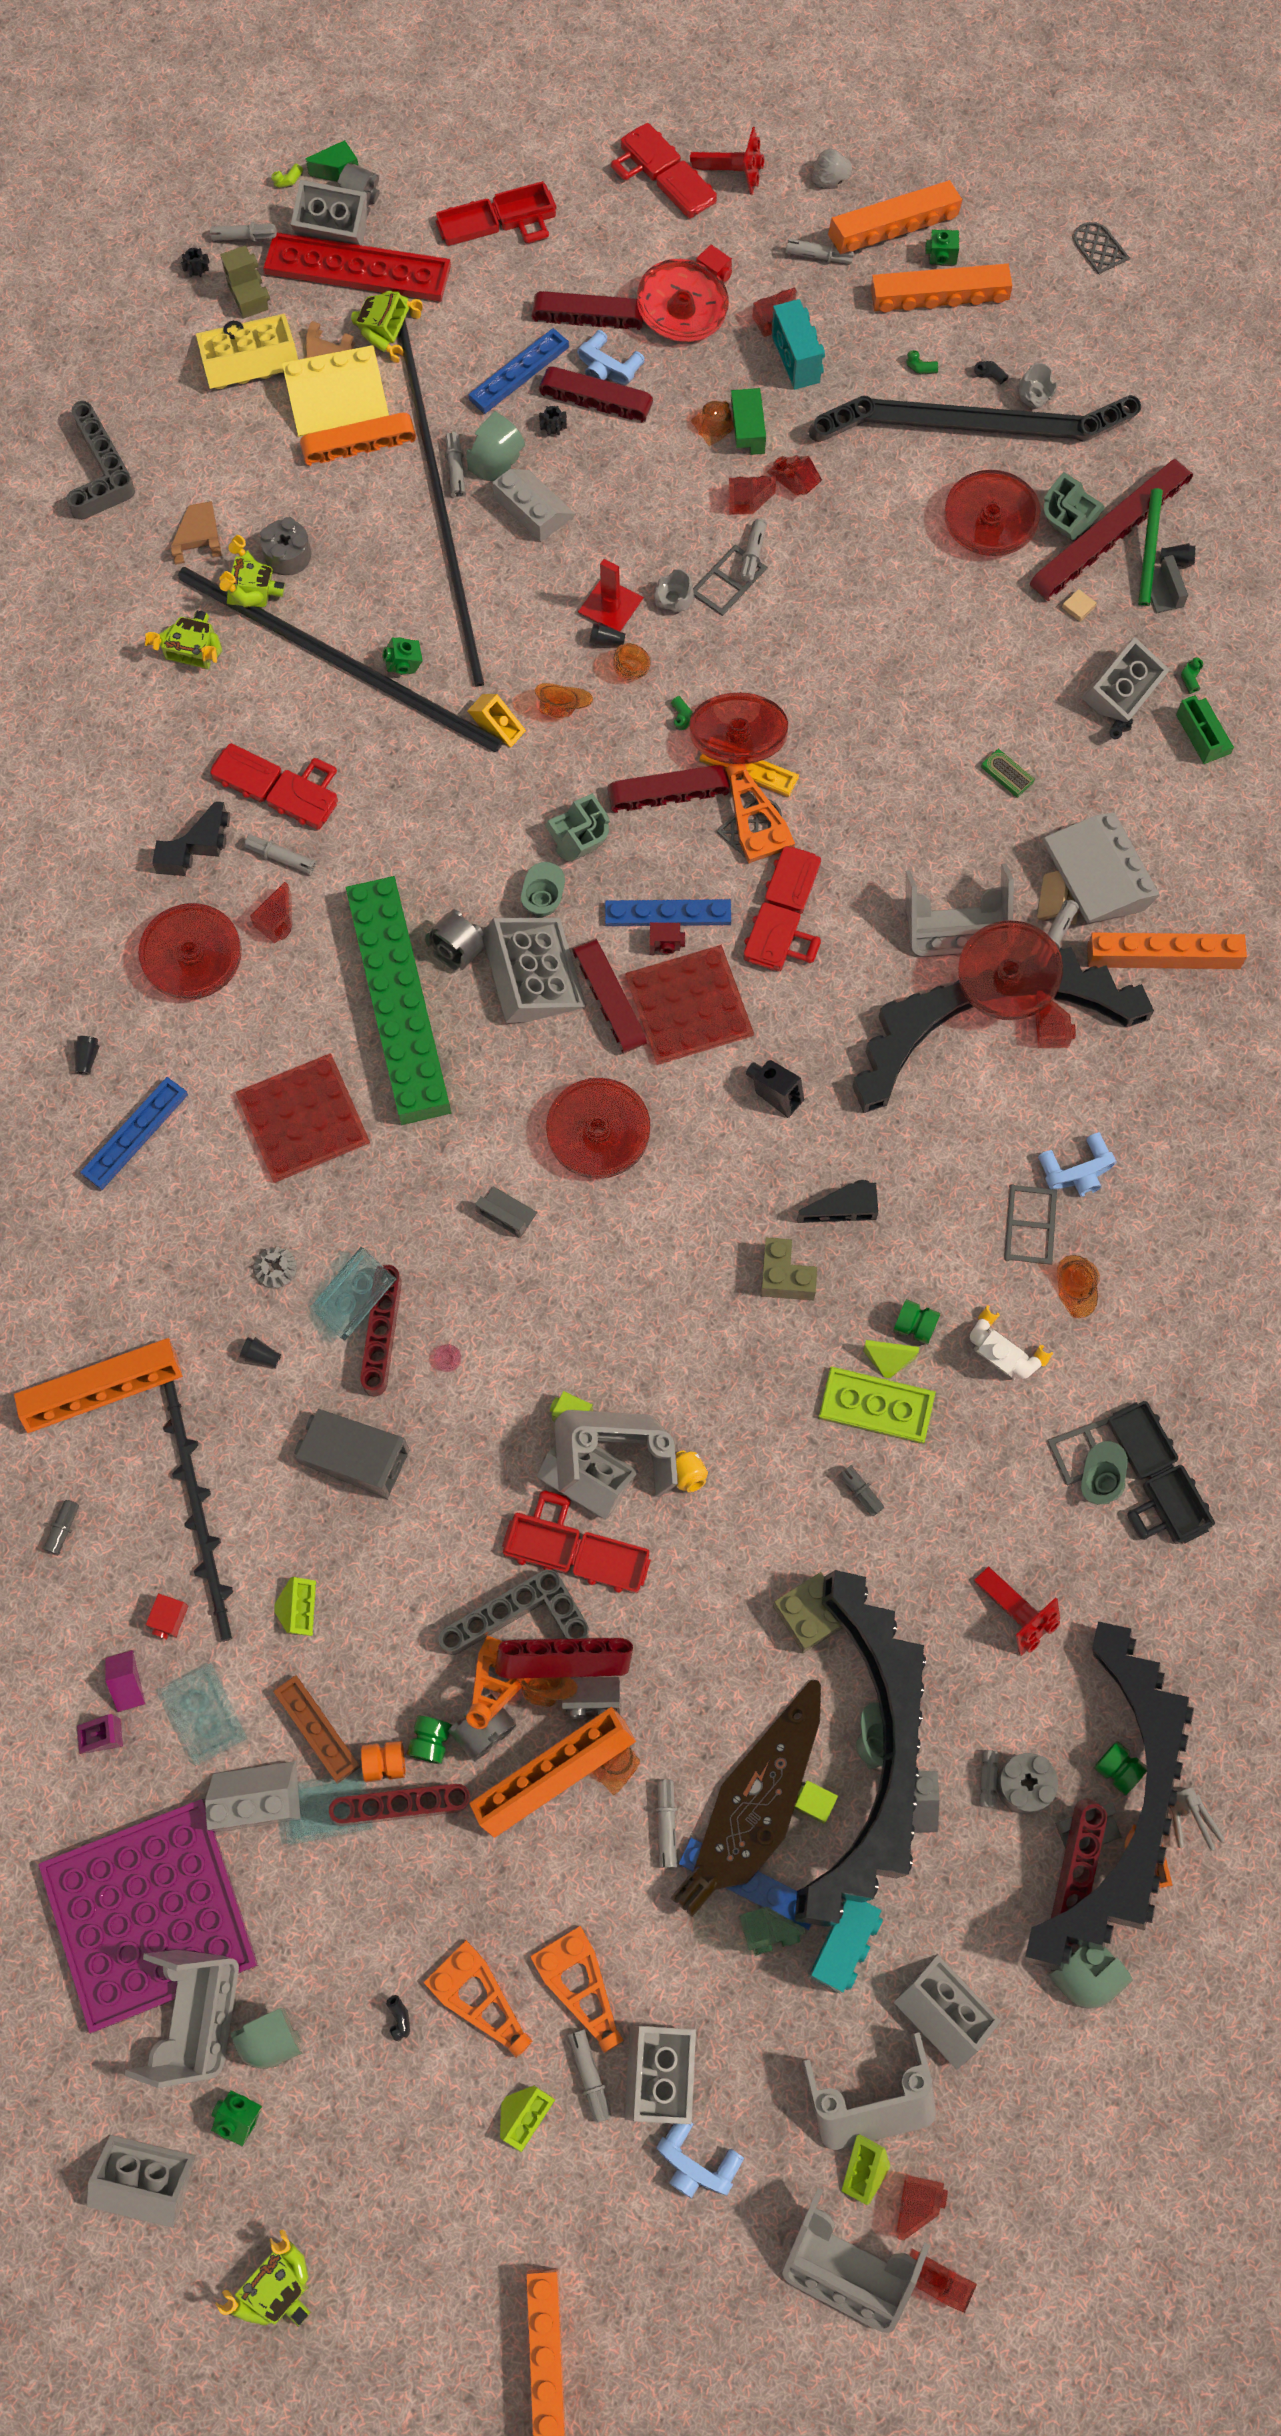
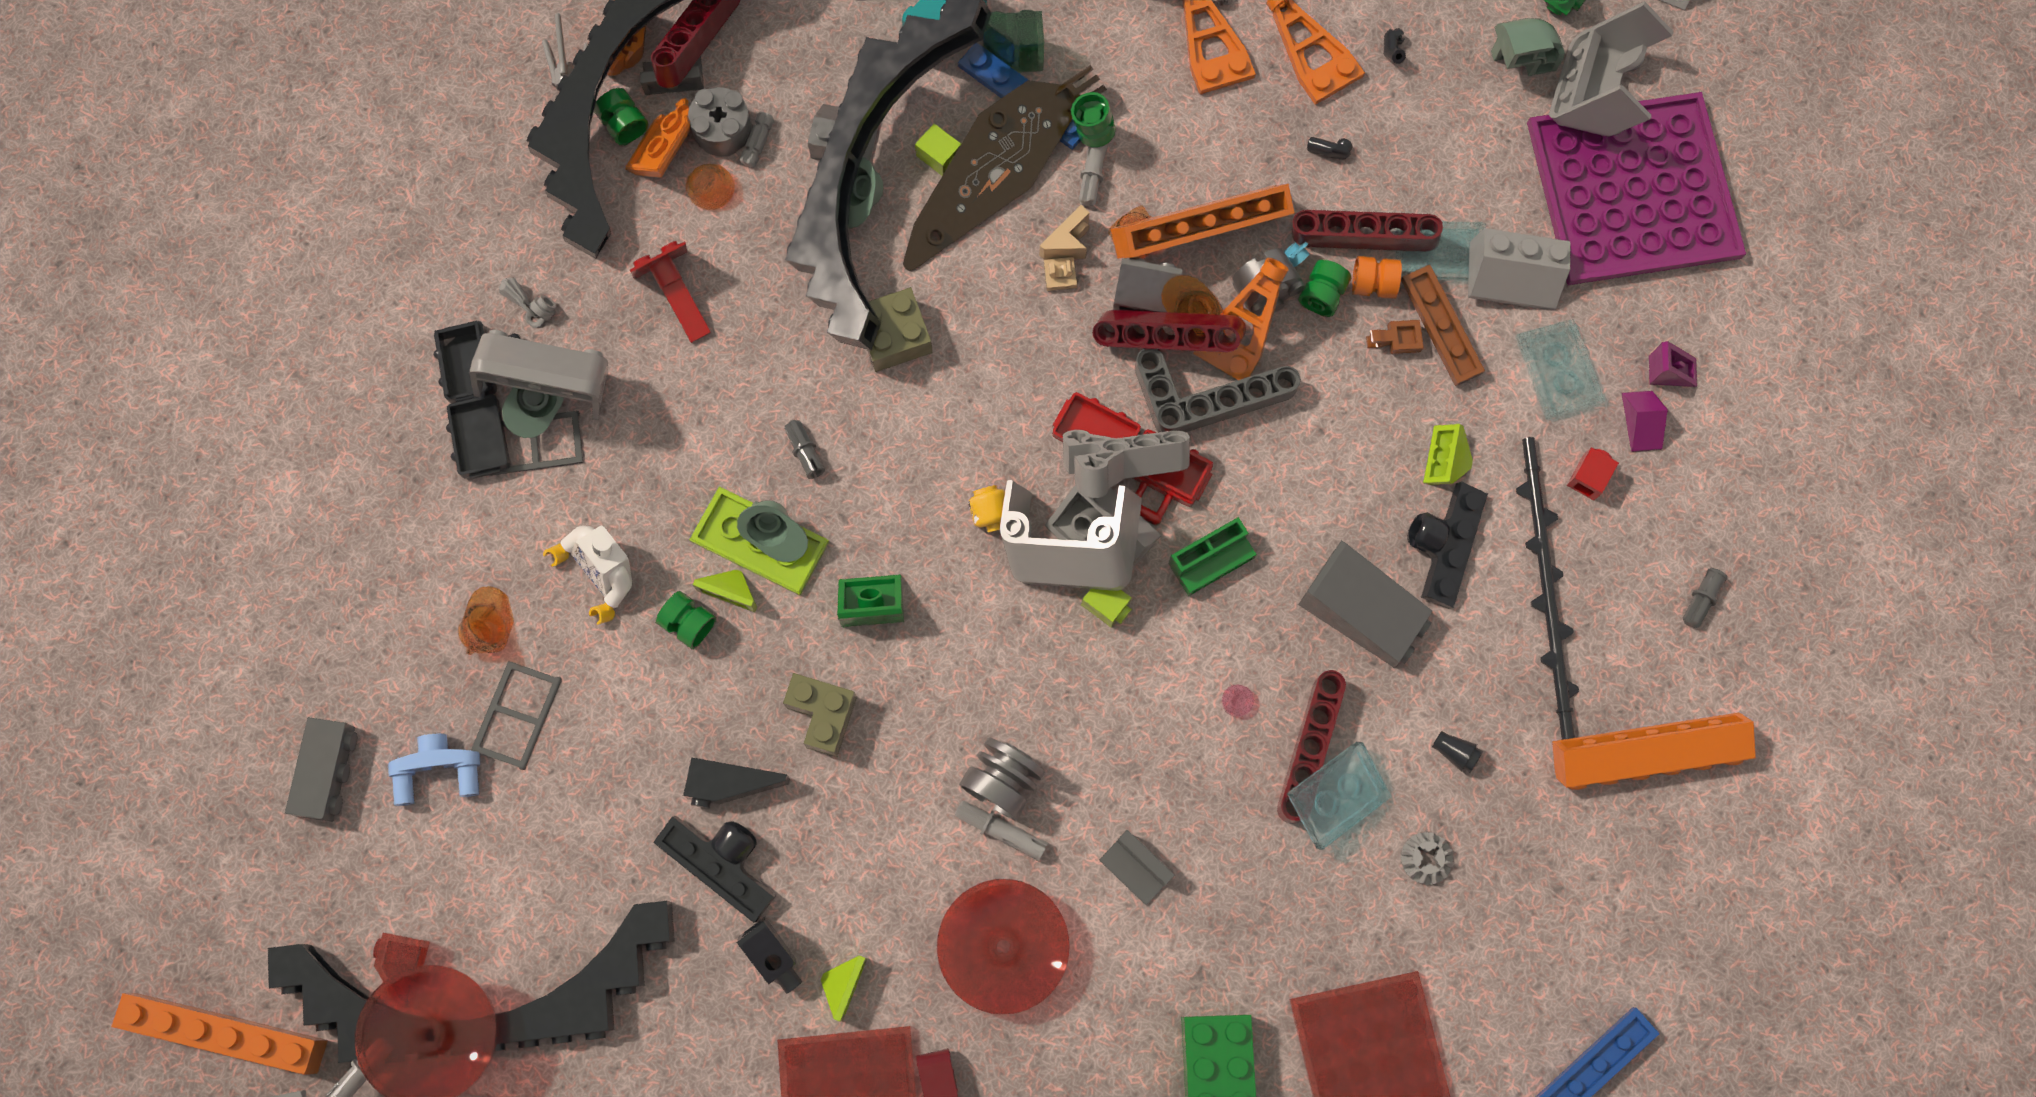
camera: 170 degrees left, 5 degrees up
(287, 1528) = (1448, 542): none -> black plate
(351, 1709) = (1401, 336): none -> dark orange plate
(446, 1889) = (1338, 150): none -> black arm
(462, 1769) = (1297, 253): none -> medium azure plate
(489, 1469) = (1212, 556): none -> green piece
(603, 1528) = (1105, 461): none -> light grey beam
(619, 1216) = (1001, 830): none -> light grey axle
(627, 1247) = (1002, 777): none -> flat silver wheel
(675, 1706) = (1060, 274): none -> tan tile
(675, 1854) = (1093, 119): none -> green wheel
(679, 1732) = (1063, 241): none -> tan slope
(716, 1079) = (840, 985): none -> lime slope
(769, 1371) = (870, 601): none -> green slope
(834, 1145) = (719, 863): none -> black plate
(867, 1407) = (772, 531): none -> sand green piece
(1018, 1722) = (710, 186): none -> clear orange piece
(1075, 1750) = (661, 142): none -> orange tile
(1103, 1485) = (539, 368): none -> light grey windscreen
(1130, 1567) = (539, 307): none -> light grey piece
(1166, 1147) = (321, 769): none -> dark grey brick

